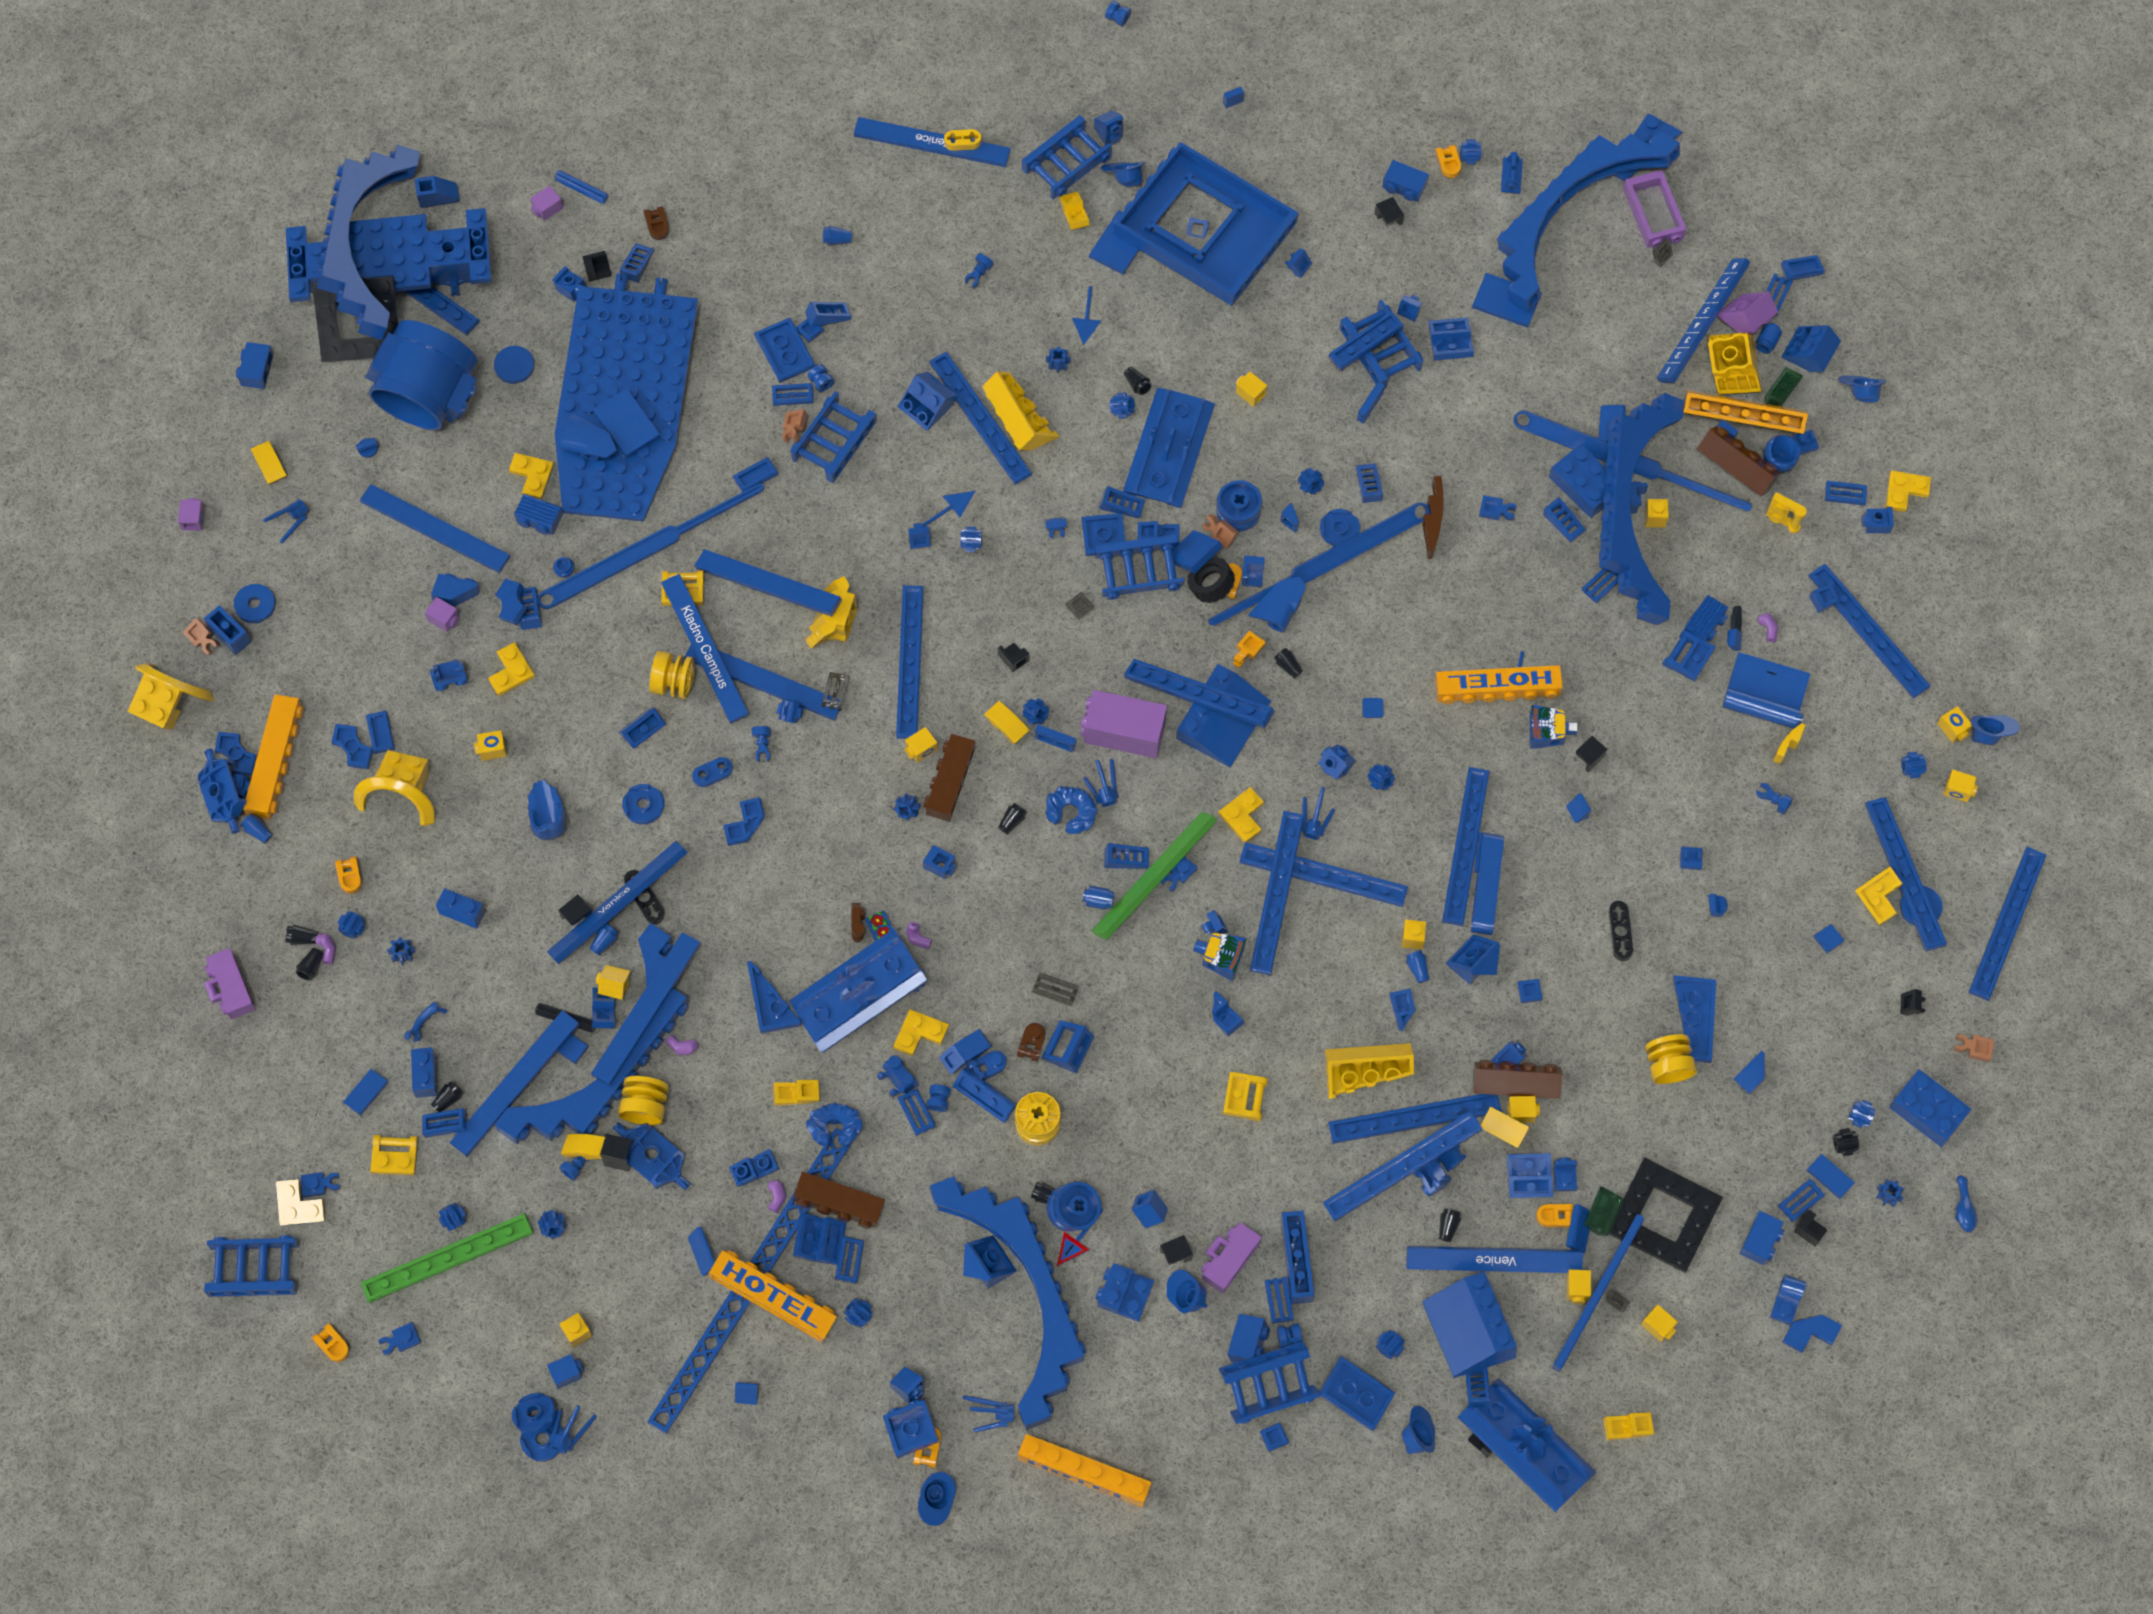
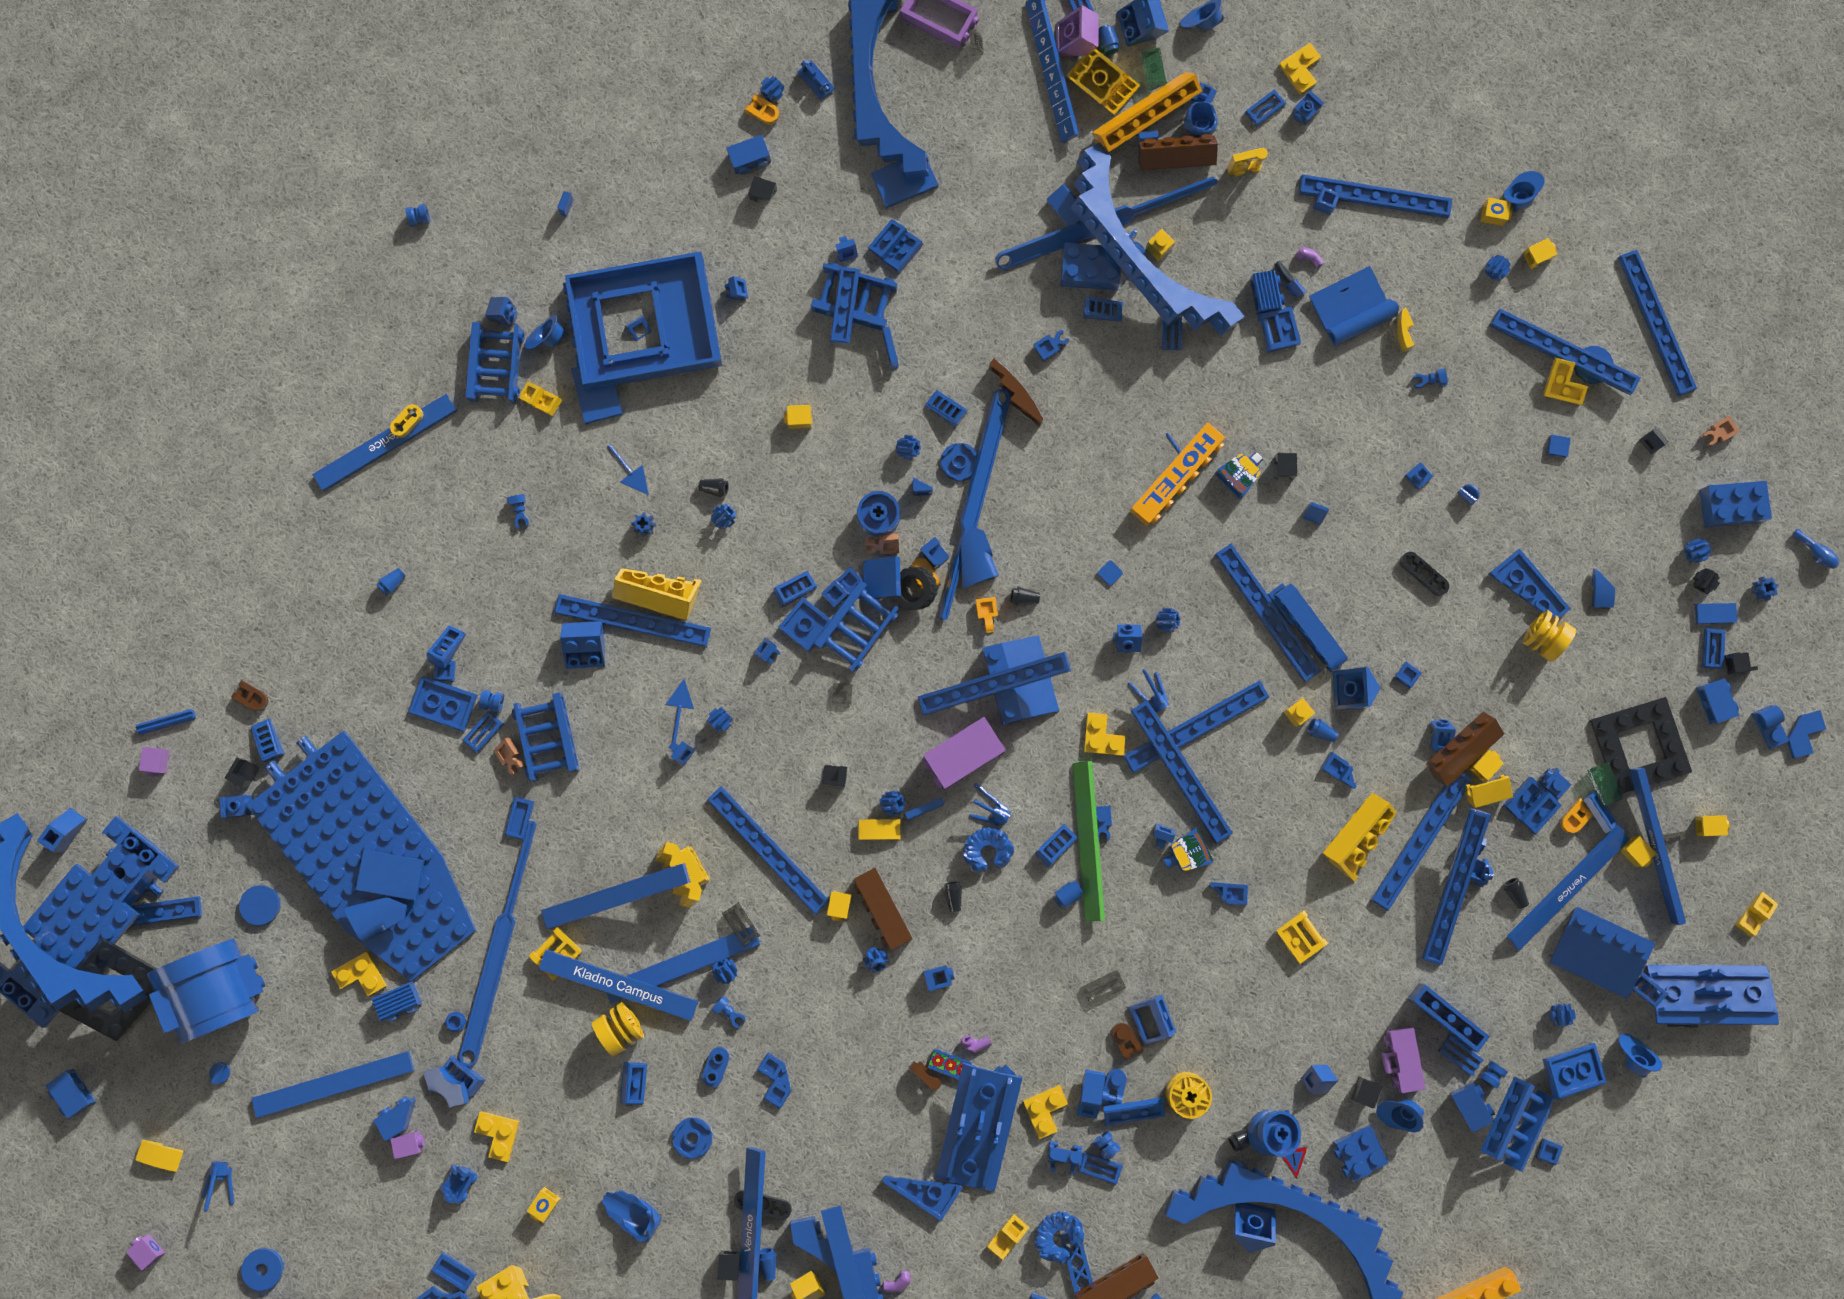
camera: 45 degrees left, 15 degrees up
(1169, 447) = (784, 515): blue hinge -> none

